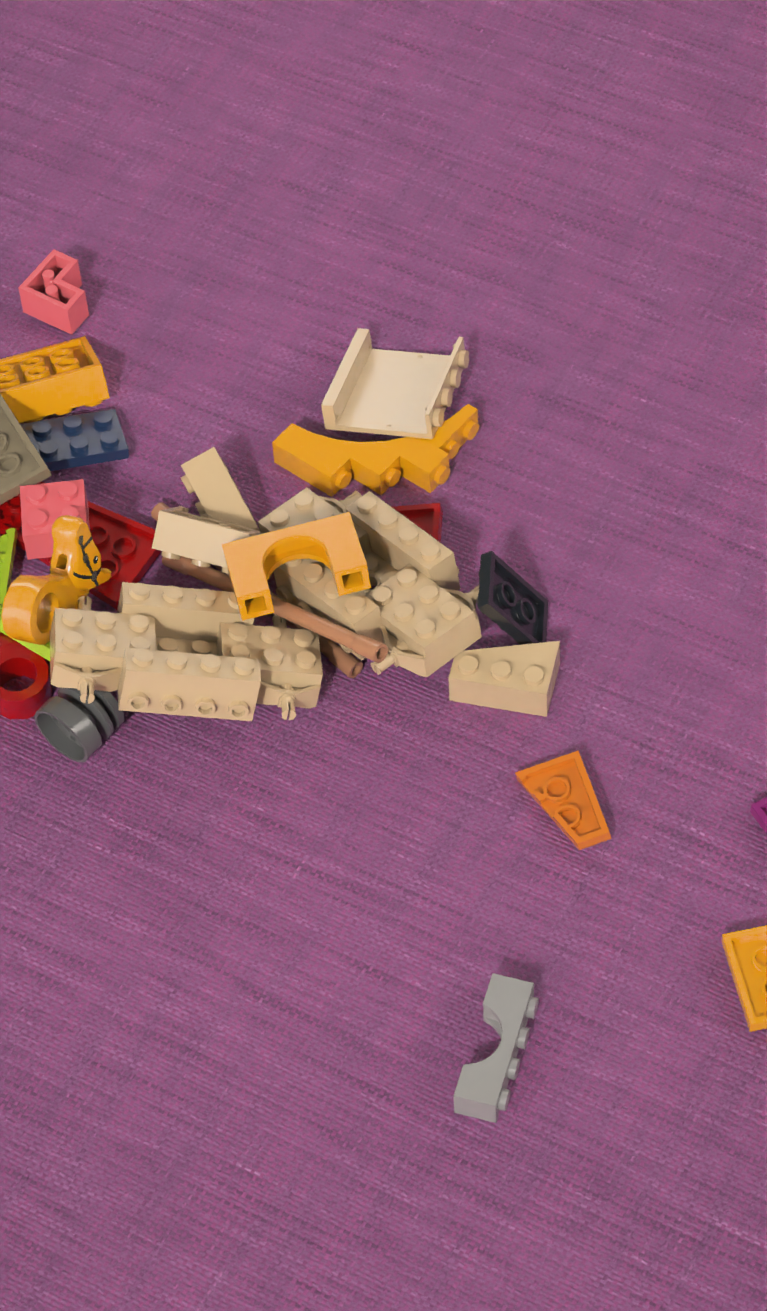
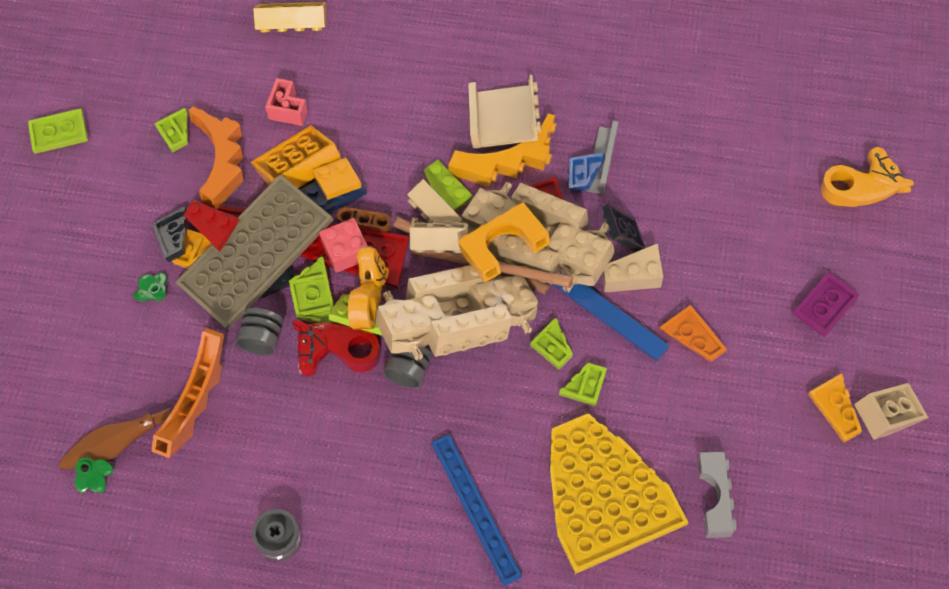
camera: 20 degrees left, 10 degrees up
(86, 420) = (336, 178): none -> light orange plate
(100, 968) = (476, 510): none -> blue tile
(110, 493) = (374, 219): none -> dark orange beam
(120, 167) = (290, 15): none -> yellow slope
(259, 477) = (447, 186): none -> lime wing
(315, 1000) = (605, 495): none -> yellow wing
(327, 754) = (553, 345): none -> lime wing
(356, 828) = (585, 385): none -> lime wing
(448, 743) = (616, 320): none -> blue tile
(491, 506) = (584, 170): none -> blue wing
(533, 497) = (604, 143): none -> light grey fence

